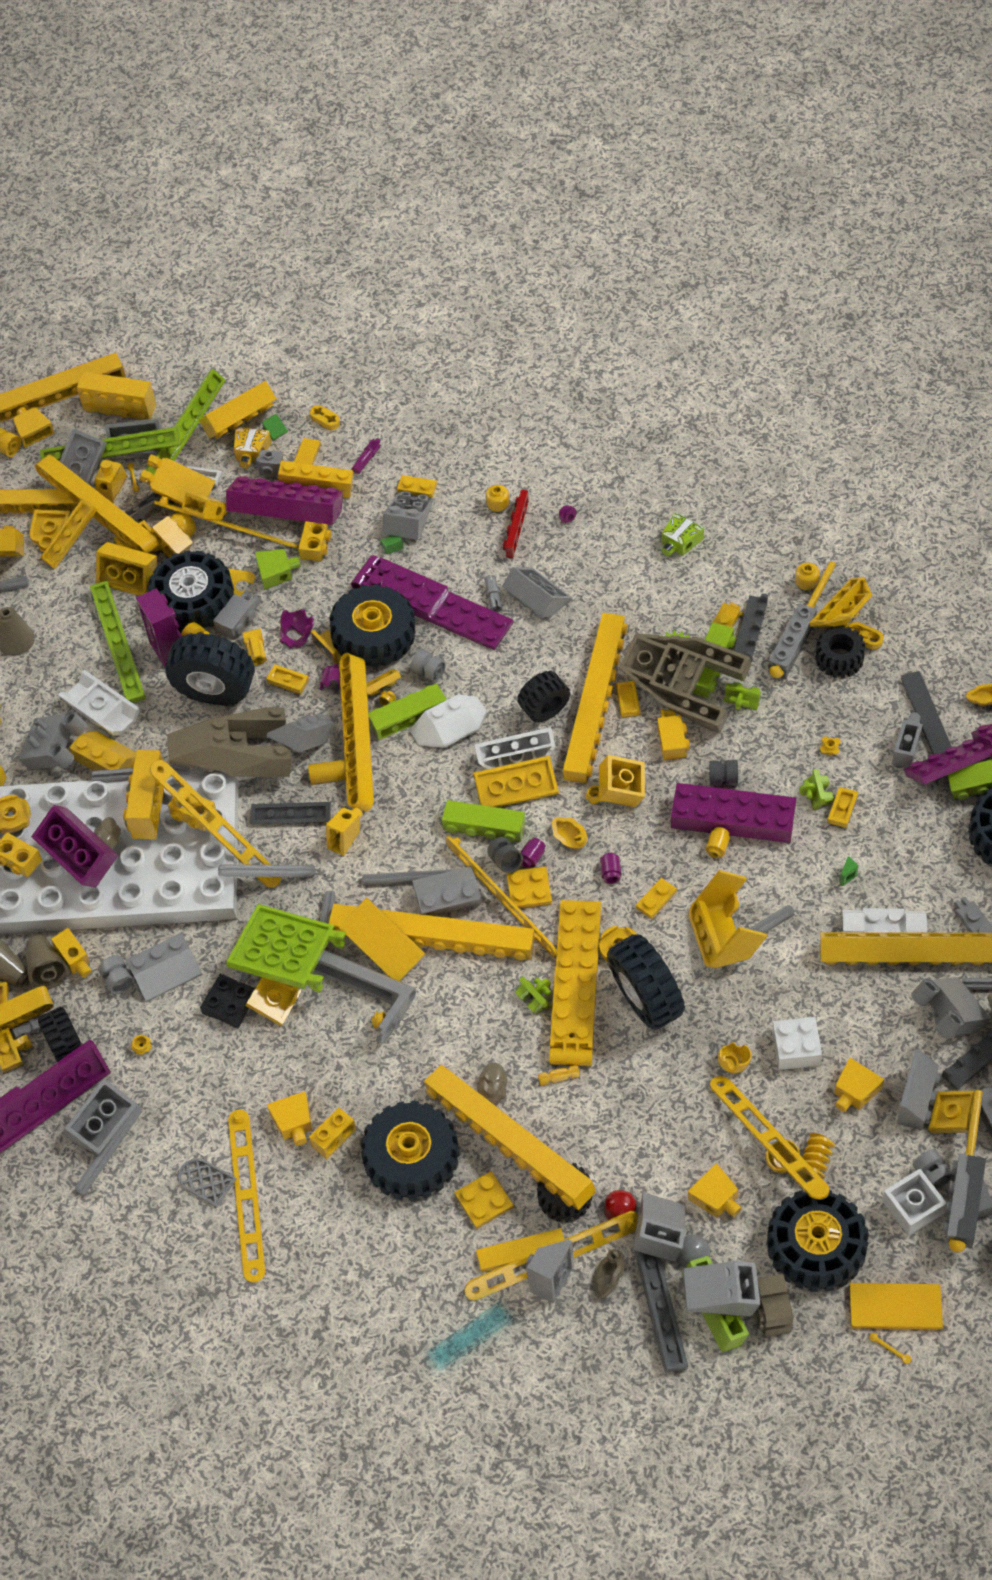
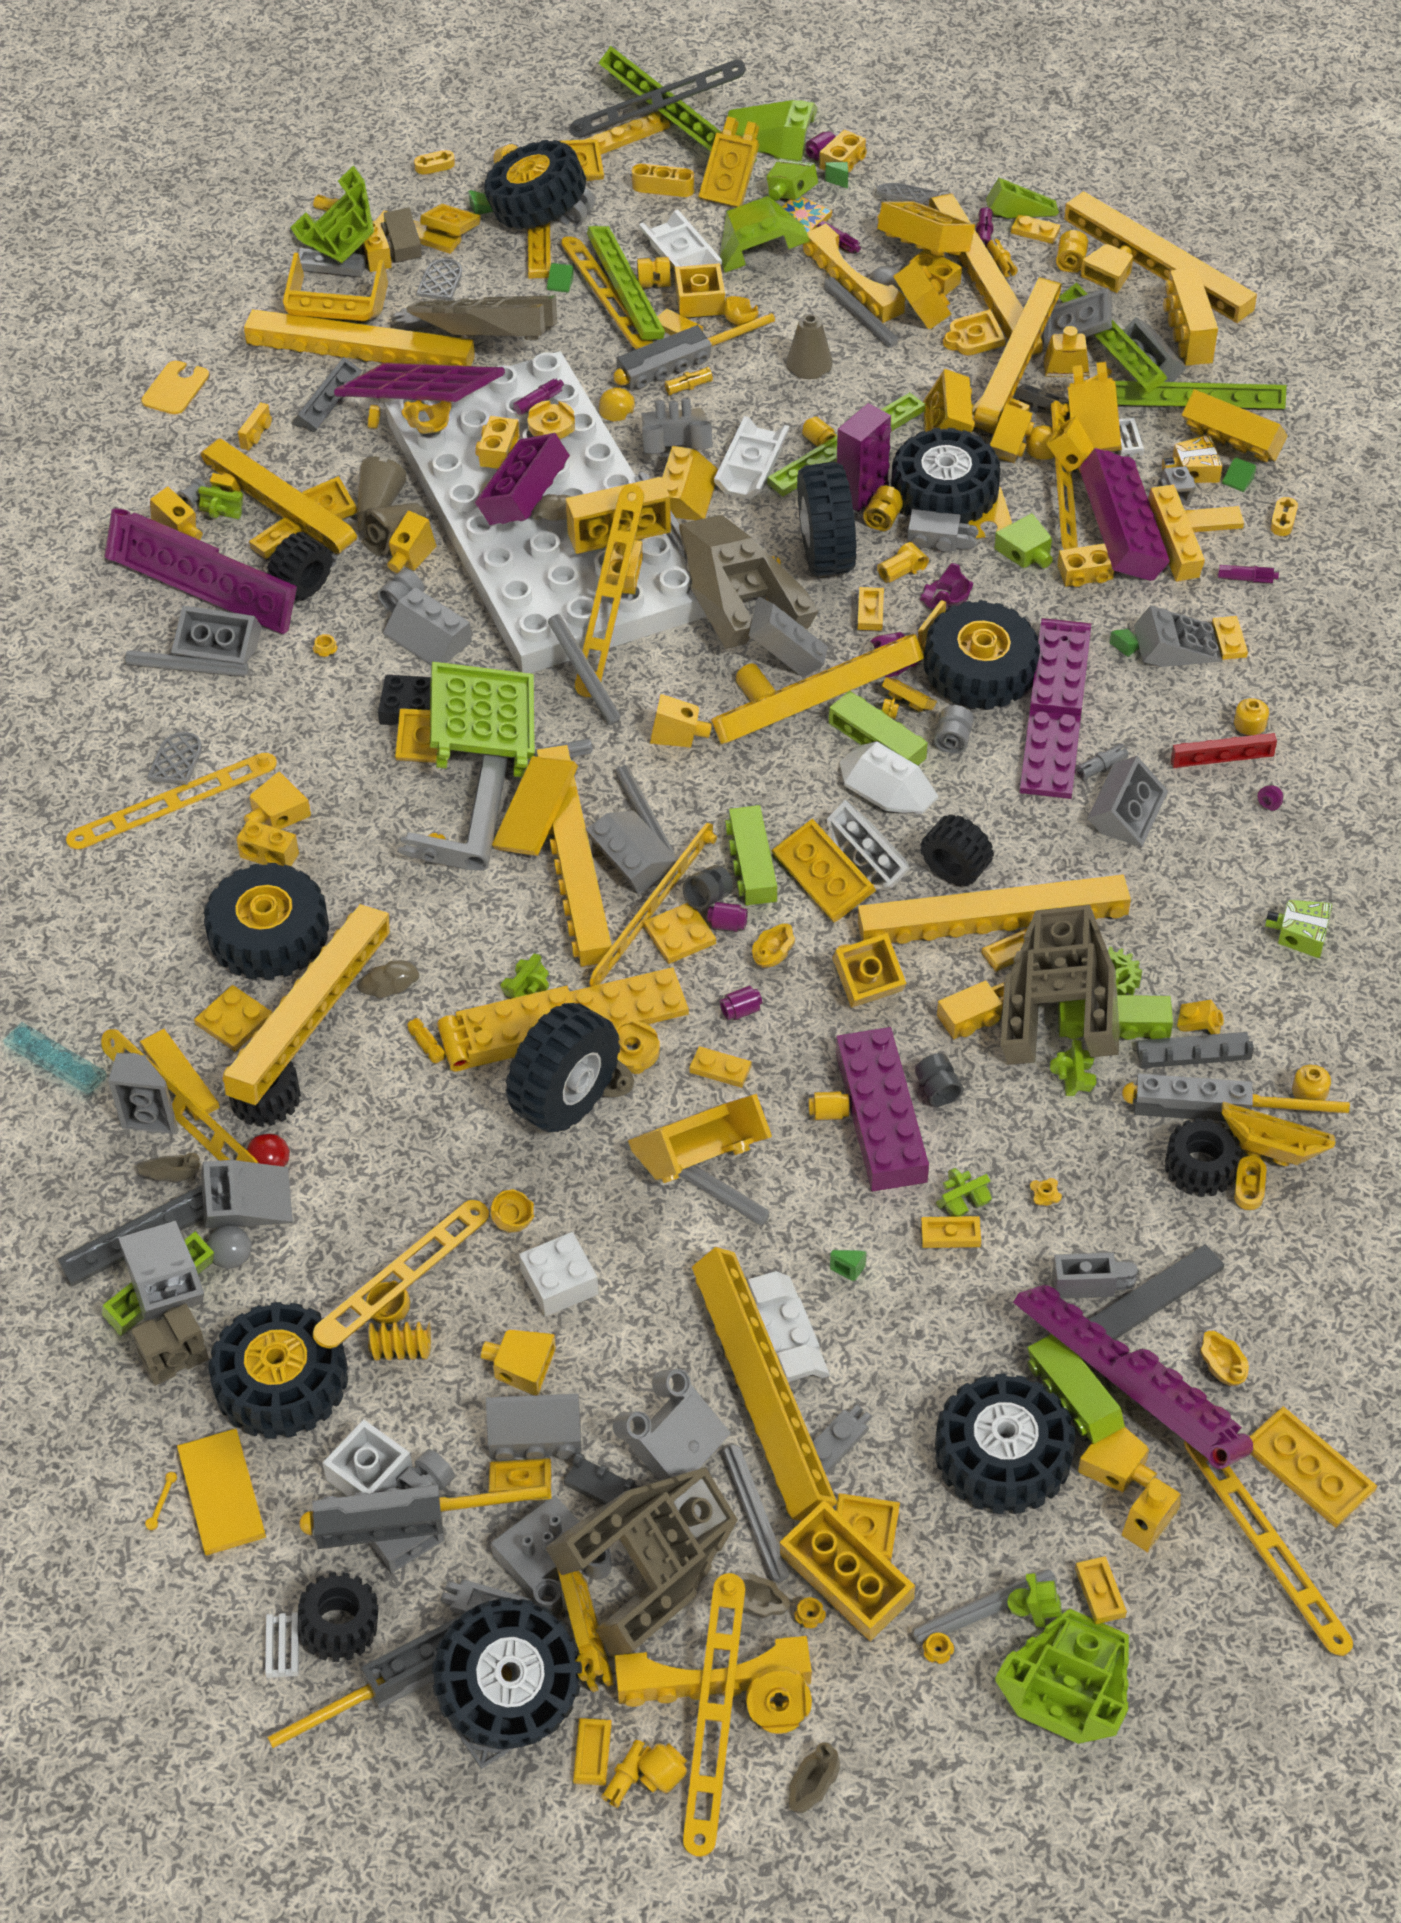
camera: 65 degrees right, 5 degrees down
(68, 533) = (968, 345): yellow tile -> none
(97, 655) = (817, 431): none -> yellow brick
(290, 812) = (683, 671): dark grey hinge -> none
(715, 1193) = (315, 1245): yellow torso -> none

